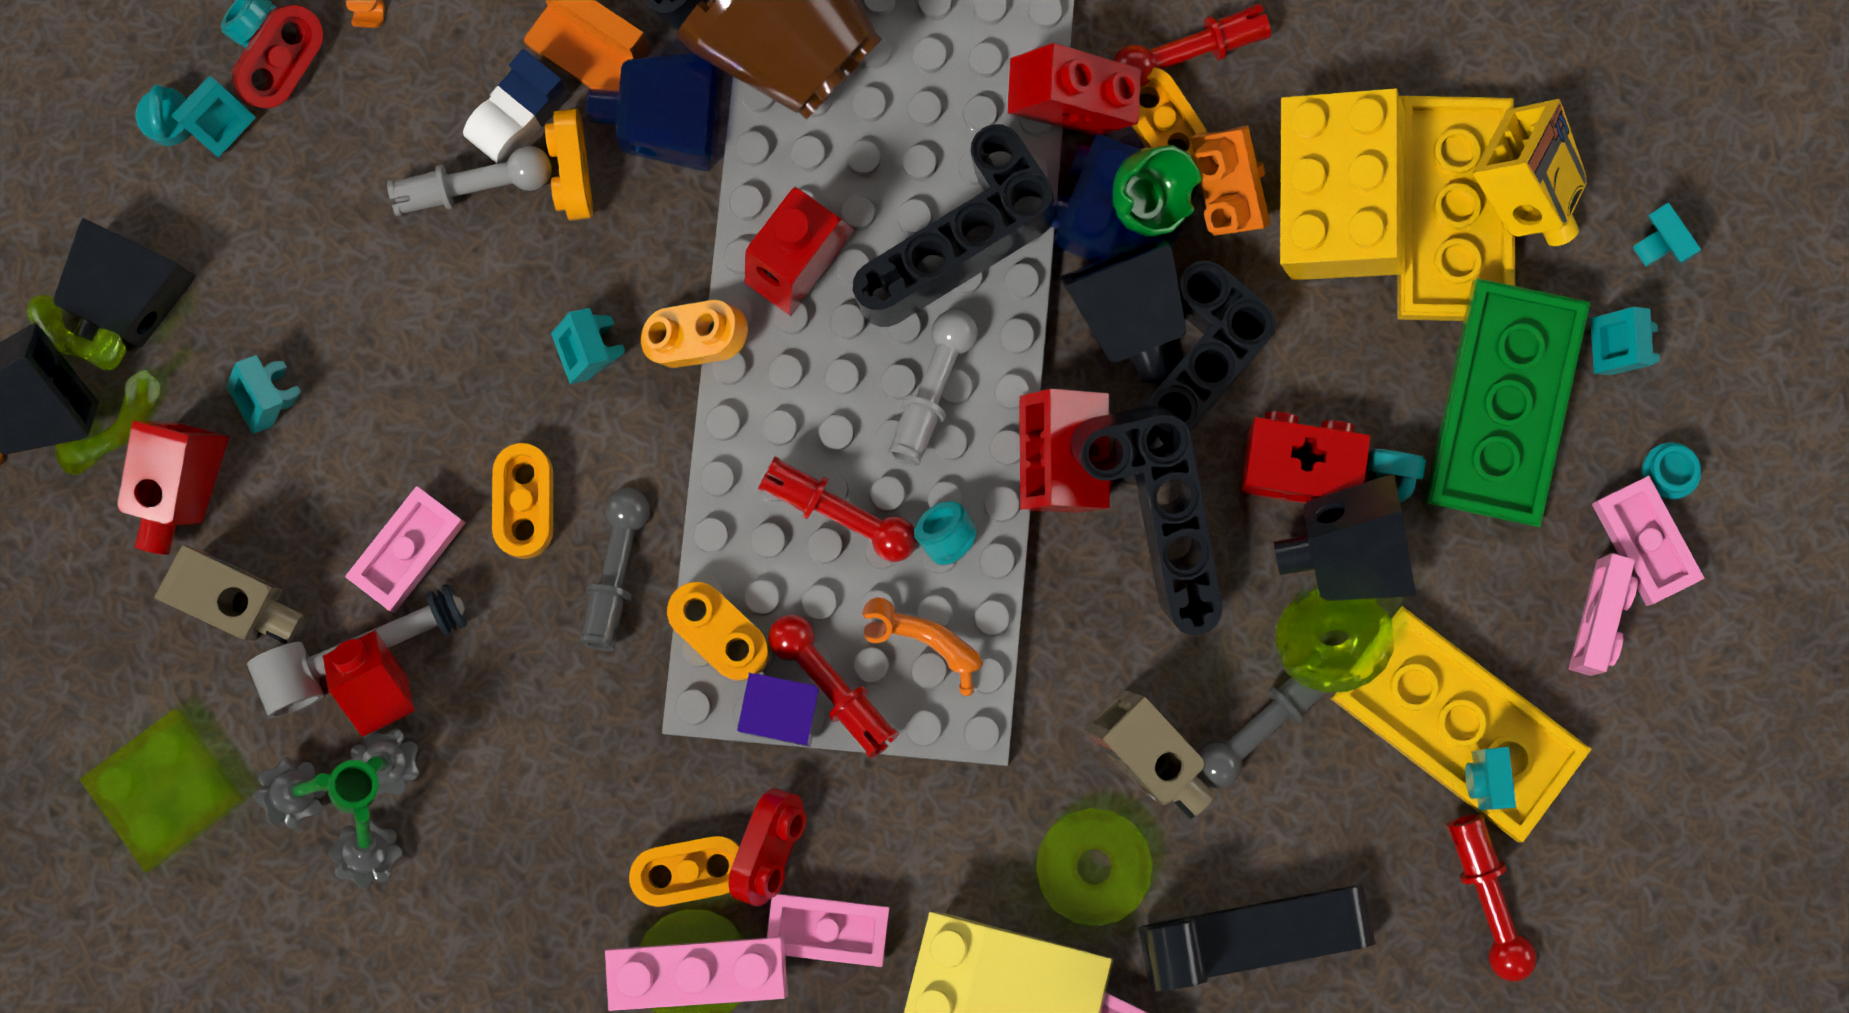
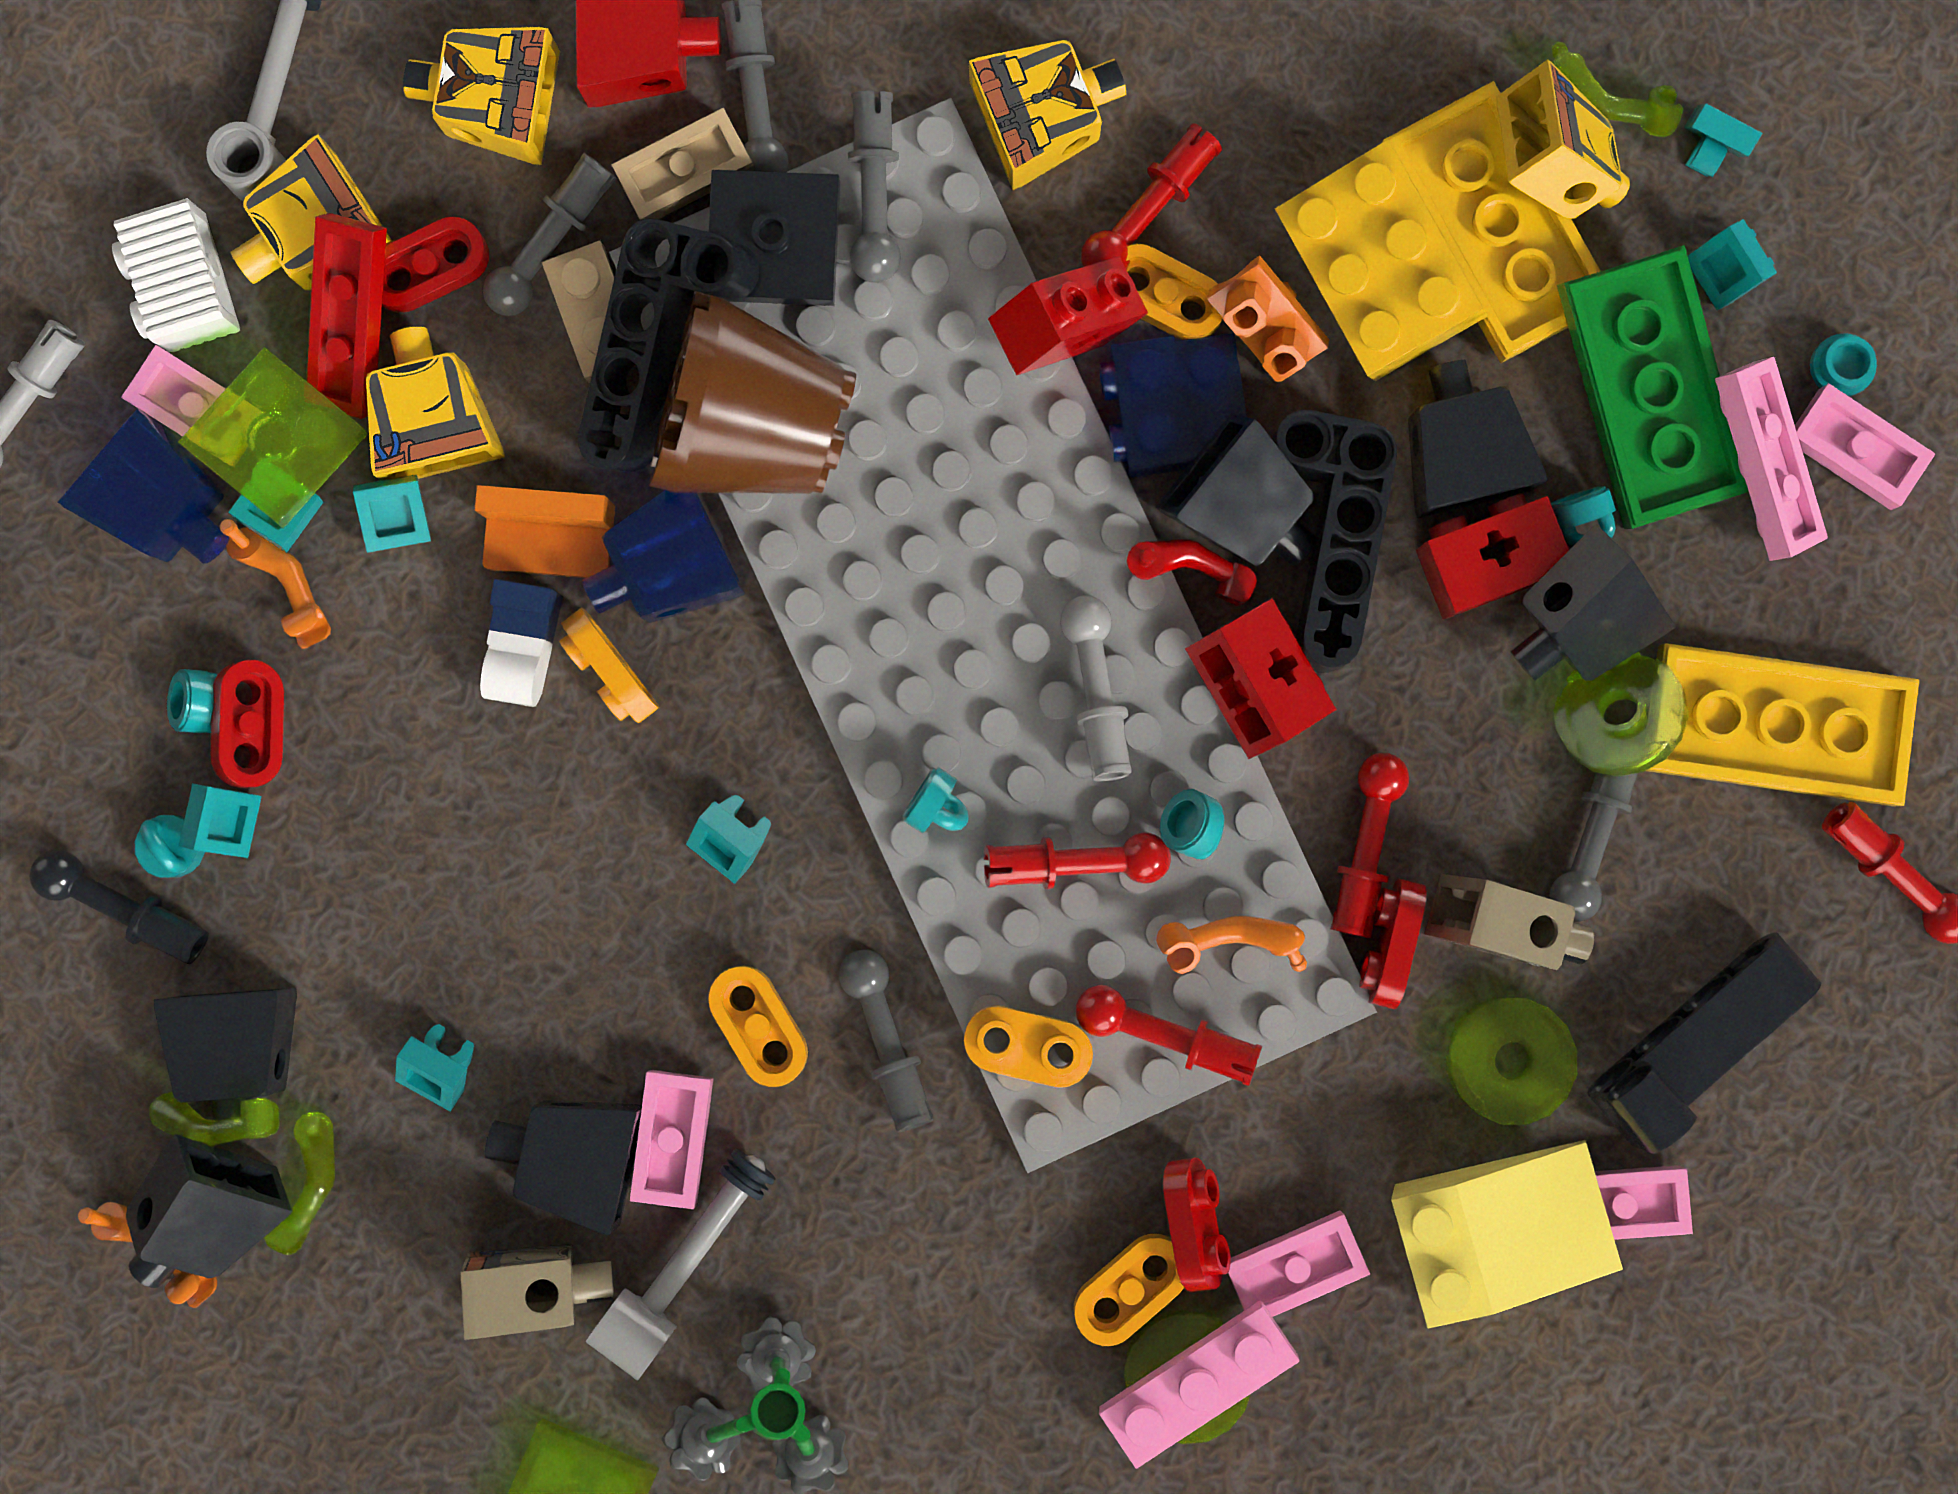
camera: 30 degrees left, 5 degrees up
(73, 92) = (61, 875): none -> black pin
(168, 479) = (398, 1206): red torso -> none
(320, 520) = (572, 1159): none -> black torso
(368, 683) = (716, 1292): red brick -> none
(526, 168) = (564, 694): light grey pin -> none
(688, 335) = (826, 769): light orange plate -> none
(755, 396) = (929, 800): none -> teal tile
(778, 709) = (1136, 1091): dark purple panel -> none
(794, 248) = (887, 631): red torso -> none
(947, 235) = (1029, 533): black beam -> none
(1035, 313) = (1158, 557): none -> red piece
(1068, 699) = (1388, 969): none -> red plate
(1116, 588) = (1382, 781): none -> red pin
(1155, 189) = (1205, 371): green hair -> none
(1161, 521) = (1400, 694): black beam -> none
(1333, 366) = (1468, 445): none -> black torso
(1491, 779) = (1849, 765): teal plate -> none
(1568, 508) = (1771, 459): none -> bright pink plate
(1609, 593) = (1853, 525): bright pink plate -> none
(1629, 195) = (1656, 115): none -> clear neon green piece

